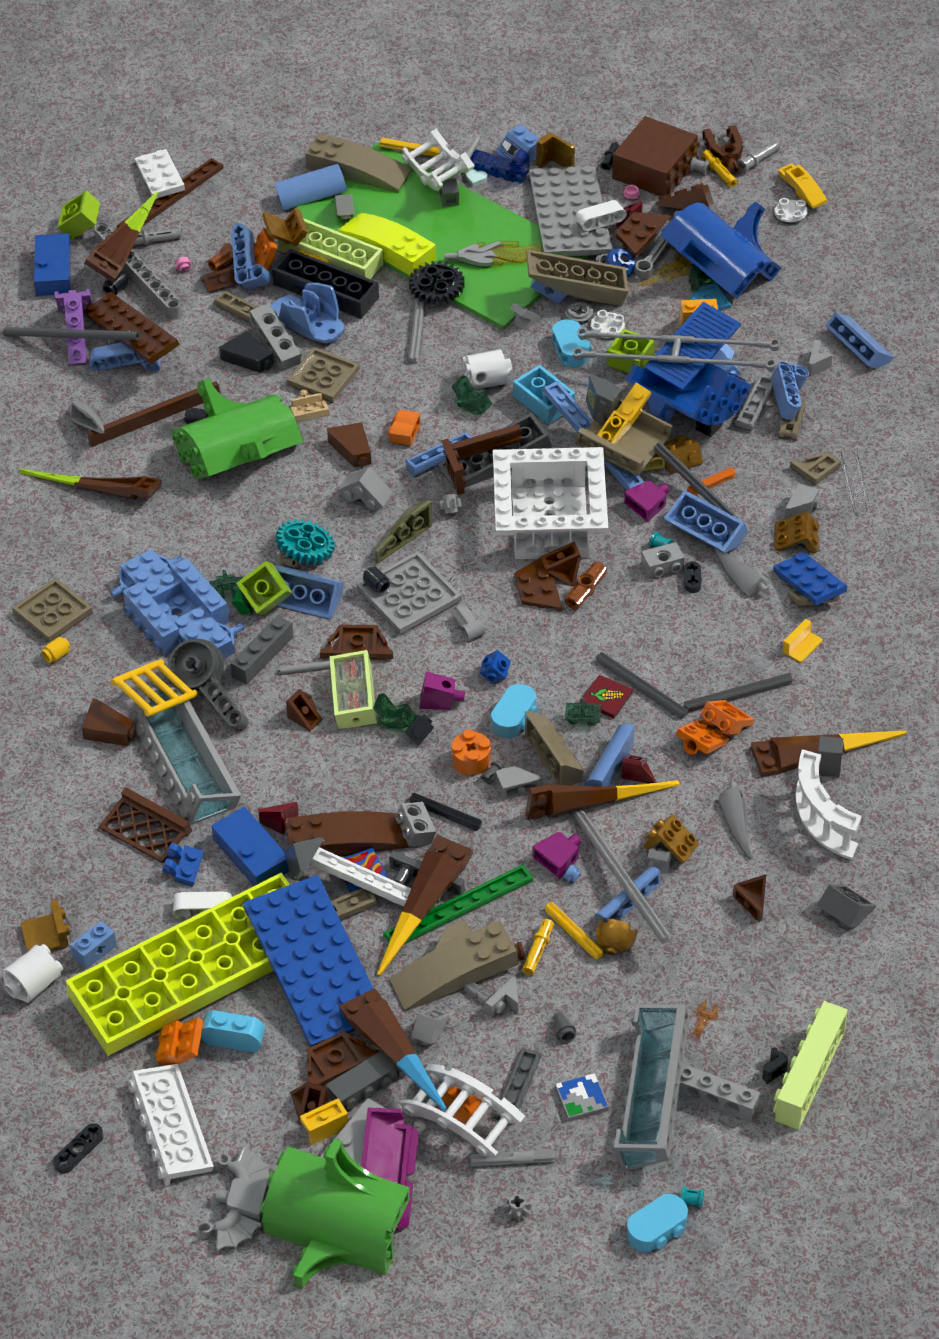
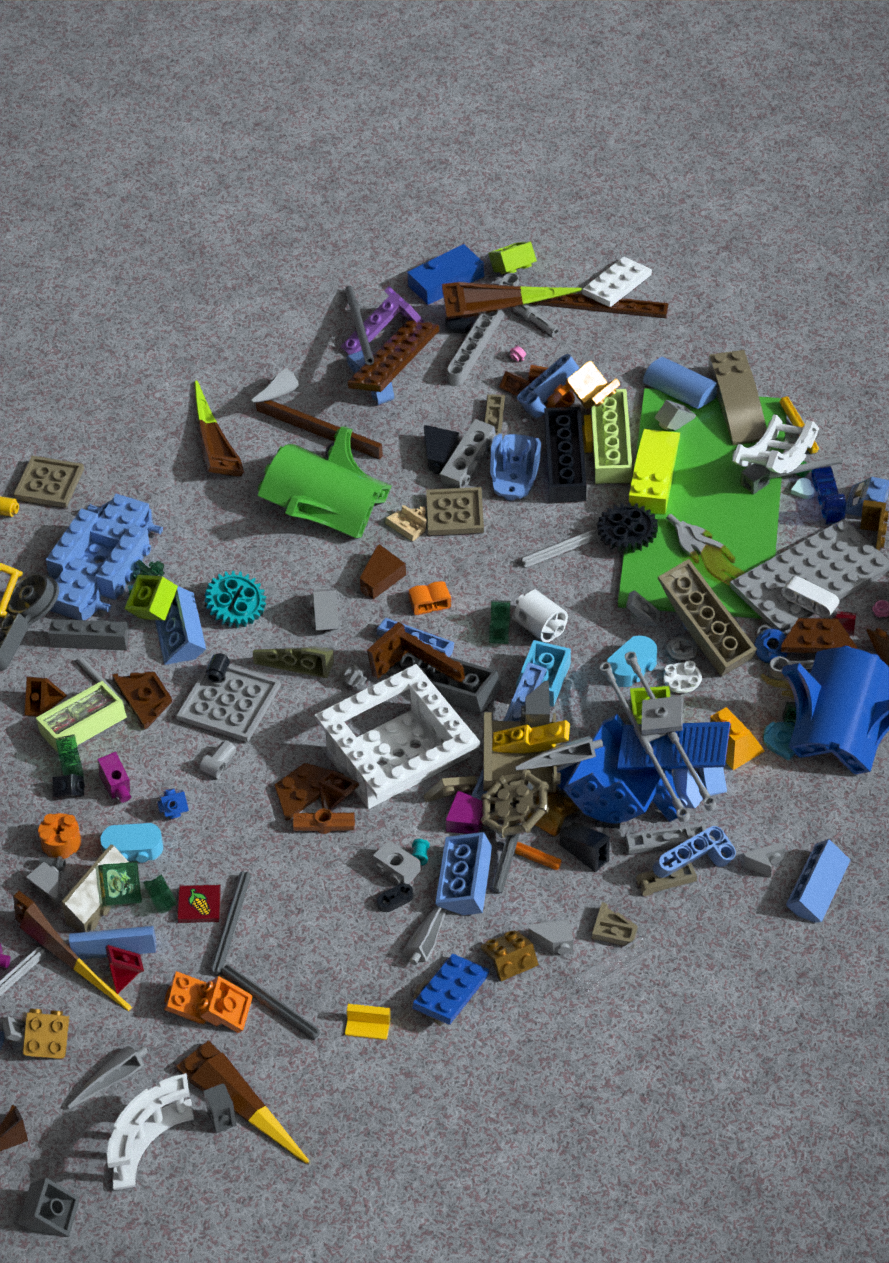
camera: 60 degrees right, 0 degrees up
(559, 729) = (119, 883): none -> clear green tile
(615, 496) = (449, 787): none -> dark tan wing
(655, 404) = (566, 753): none -> light grey piece
(665, 334) = (662, 715): none -> light grey plate
(671, 449) = (511, 794): none -> dark tan plate
(732, 444) = (586, 845): none -> black slope

